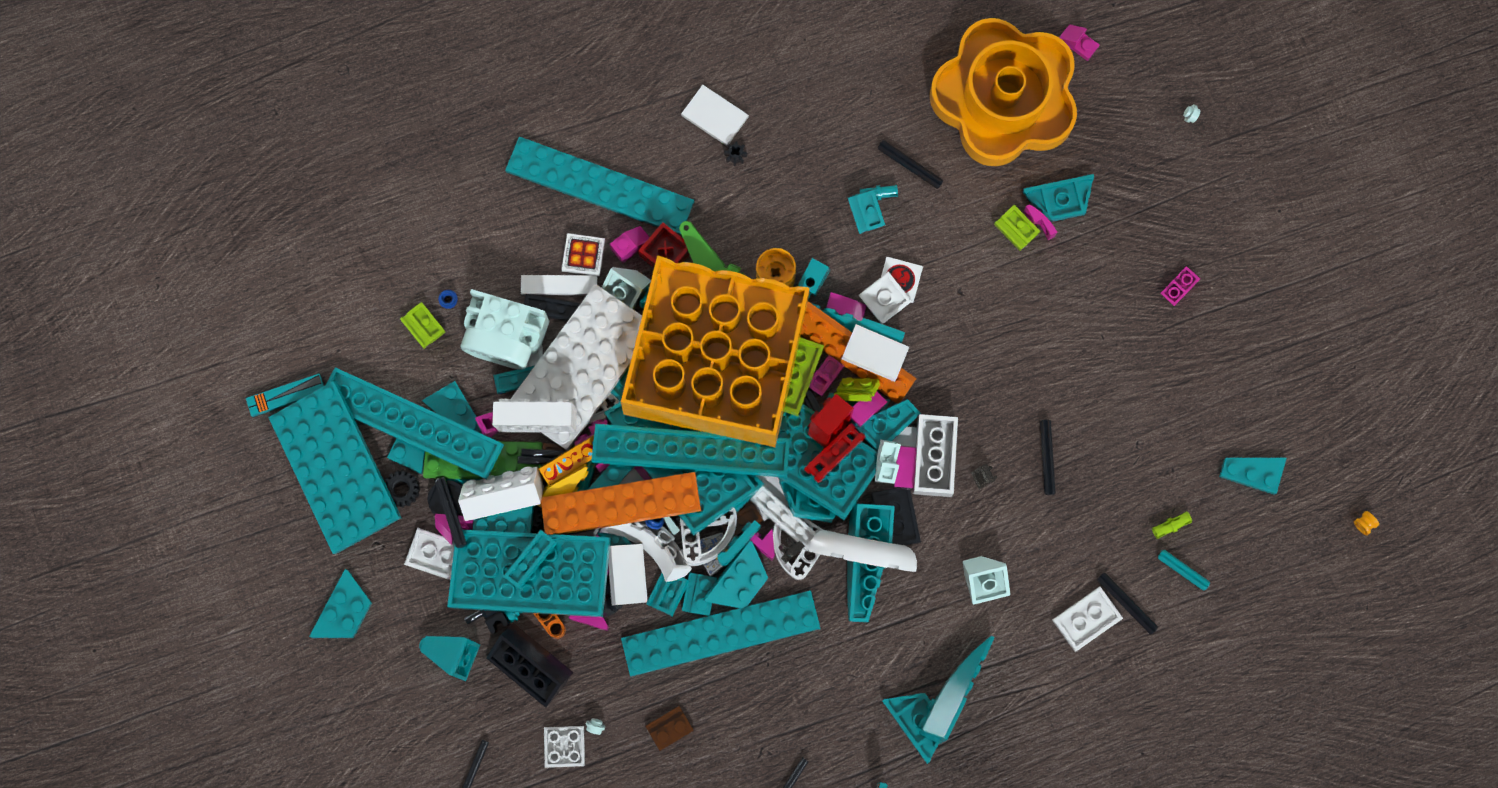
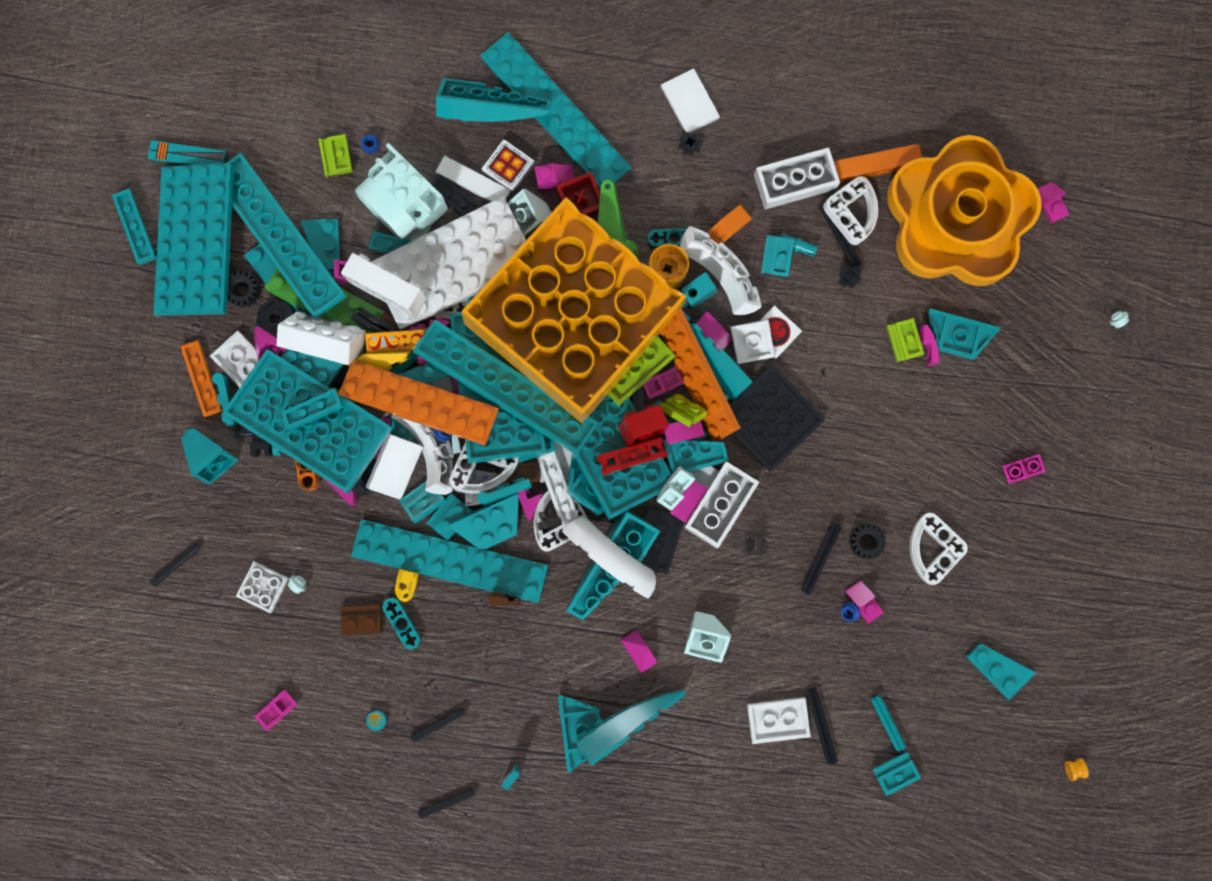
camera: 25 degrees right, 5 degrees up
(272, 484) = (134, 226): none -> teal plate
(343, 610) = (137, 368): teal wing -> none
(407, 589) = (201, 378): none -> orange tile
(439, 595) = (224, 397): none -> teal plate
(450, 512) = (269, 332): black axle -> none
(524, 214) = (477, 103): none -> teal wedge
(529, 665) = (269, 500): black slope -> none
(692, 708) = (389, 613): none -> teal beam
(693, 675) = (406, 584): none -> yellow rock
(780, 240) = (660, 234): none -> teal beam
(785, 641) = (501, 599): none -> reddish brown plate
(809, 206) = (730, 225): none -> orange slope
(826, 246) = (725, 268): none -> white brick
(846, 135) = (796, 178): none -> white brick
(875, 353) = (715, 386): white tile -> none
(900, 142) = (841, 210): none -> white beam
(907, 87) = (876, 163): none -> orange beam
(932, 623) = (639, 651): none -> dark pink slope
(939, 197) = (850, 276): none -> black gear
(940, 356) = (773, 418): none -> black plate
(1083, 409) = (878, 536): none -> black tyre
(1096, 494) = (847, 615): none -> blue plate
(1105, 475) = (865, 601): none -> dark pink slope
(1154, 392) = (948, 551): none -> white beam
(1172, 525) = (899, 677): lime pin -> none
(1214, 610) = (896, 773): none -> teal plate

